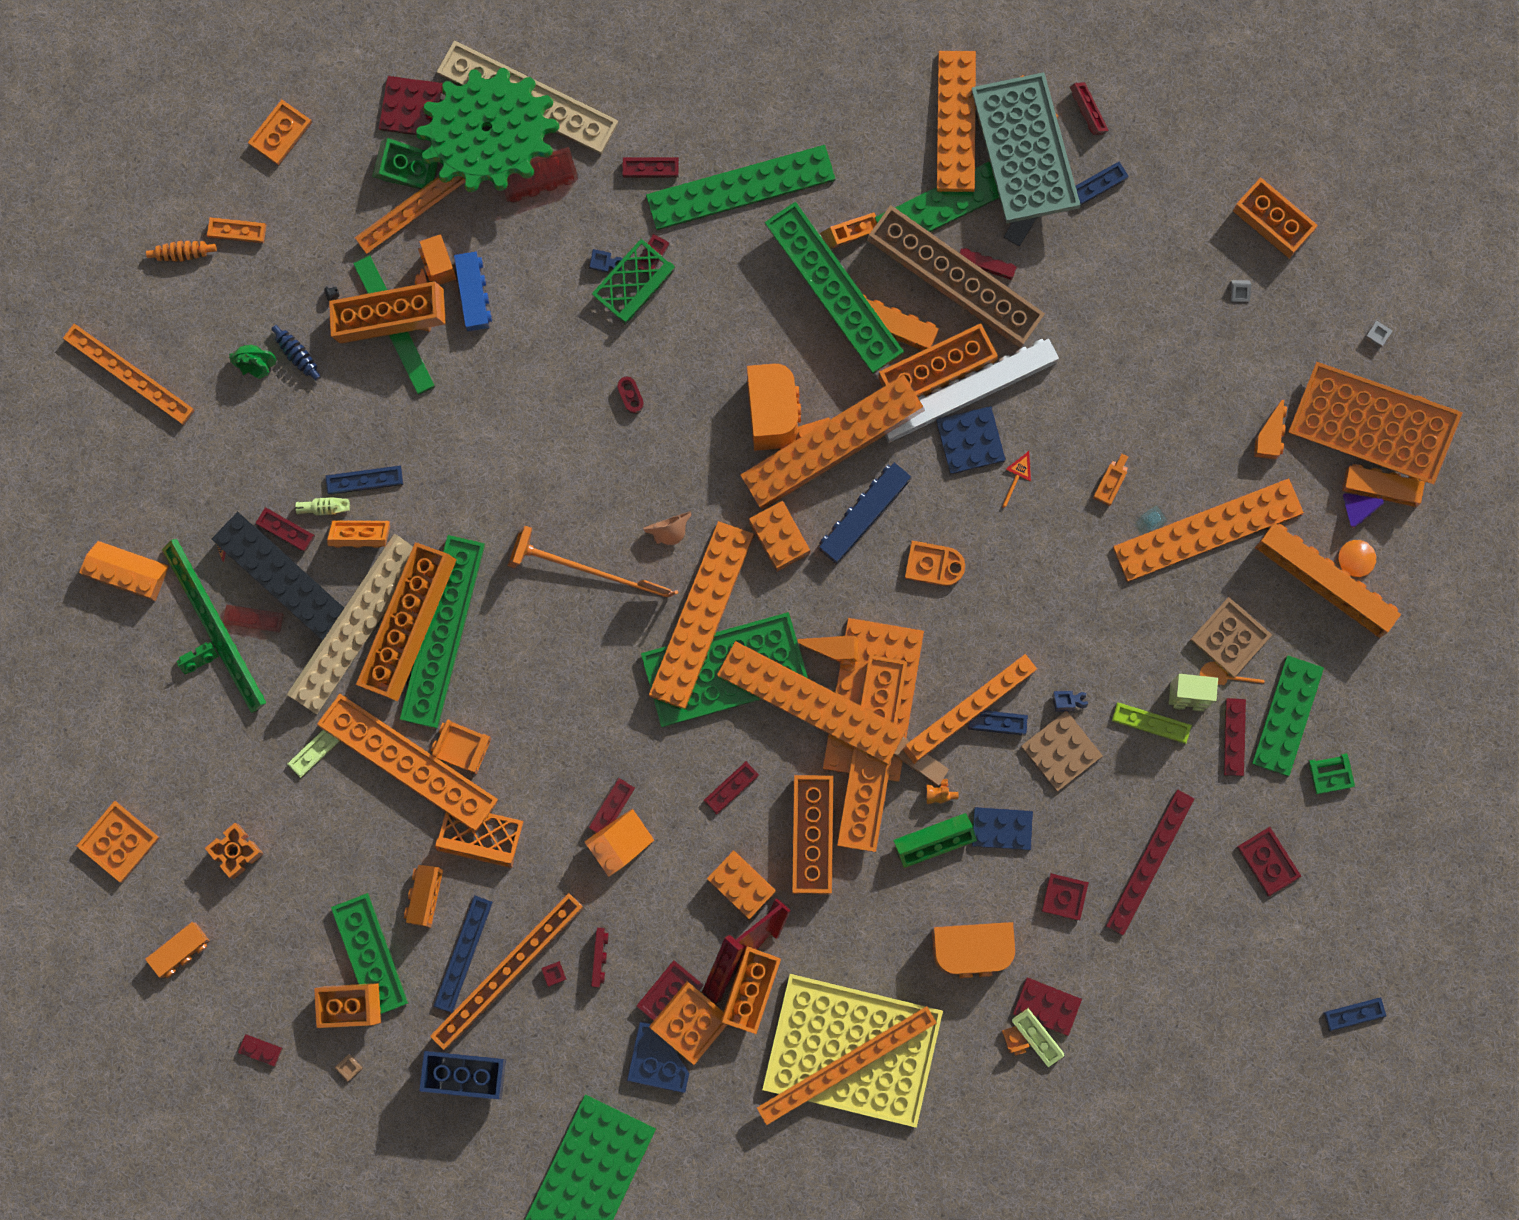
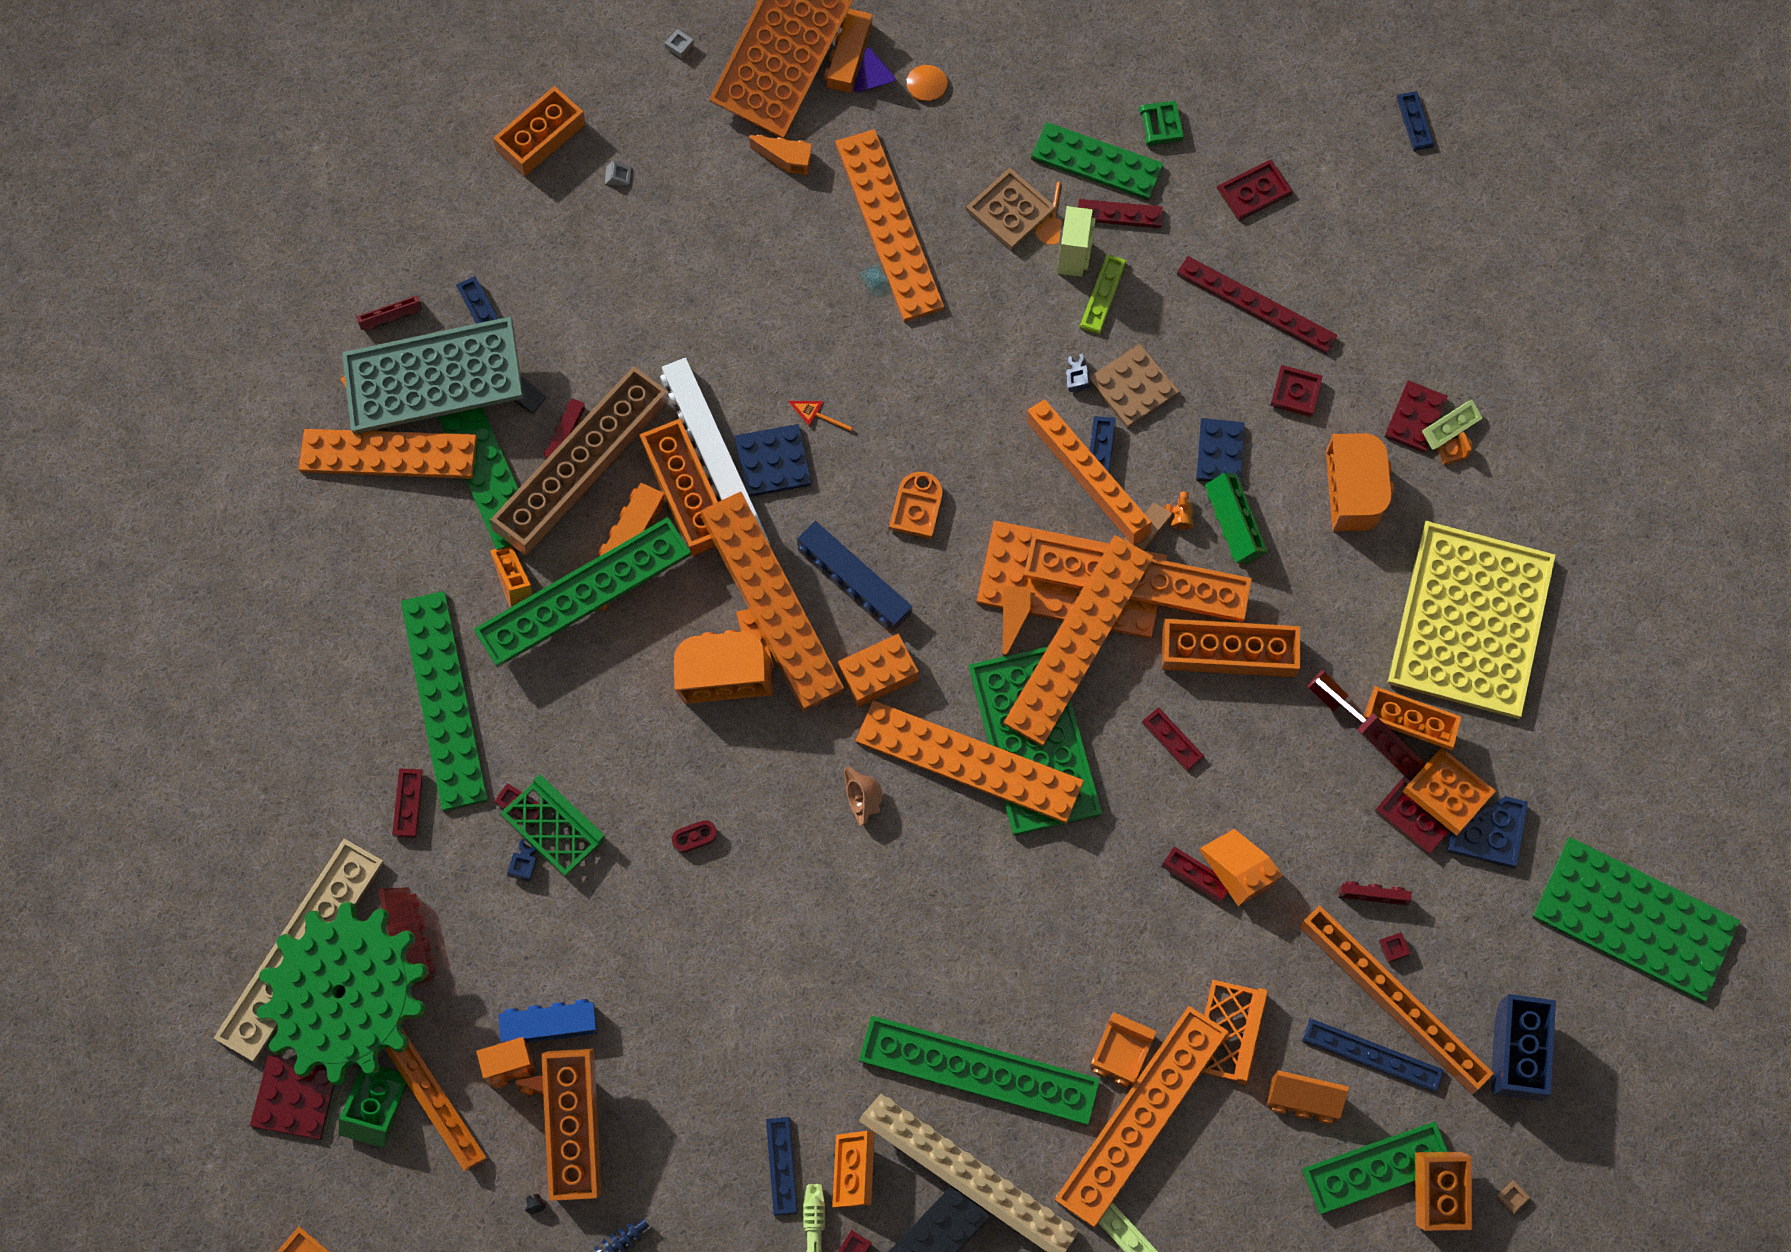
camera: 90 degrees left, 10 degrees down
(401, 341) = (609, 1113): green tile -> none
(406, 621) = (969, 1110): orange brick -> none
(522, 547) = (880, 967): orange piece -> none
(741, 885) = (1288, 729): orange brick -> none
(846, 1065) = (1492, 623): orange plate -> none
(1111, 481) = (829, 315): orange hinge -> none
(1328, 580) = (952, 107): orange brick -> none

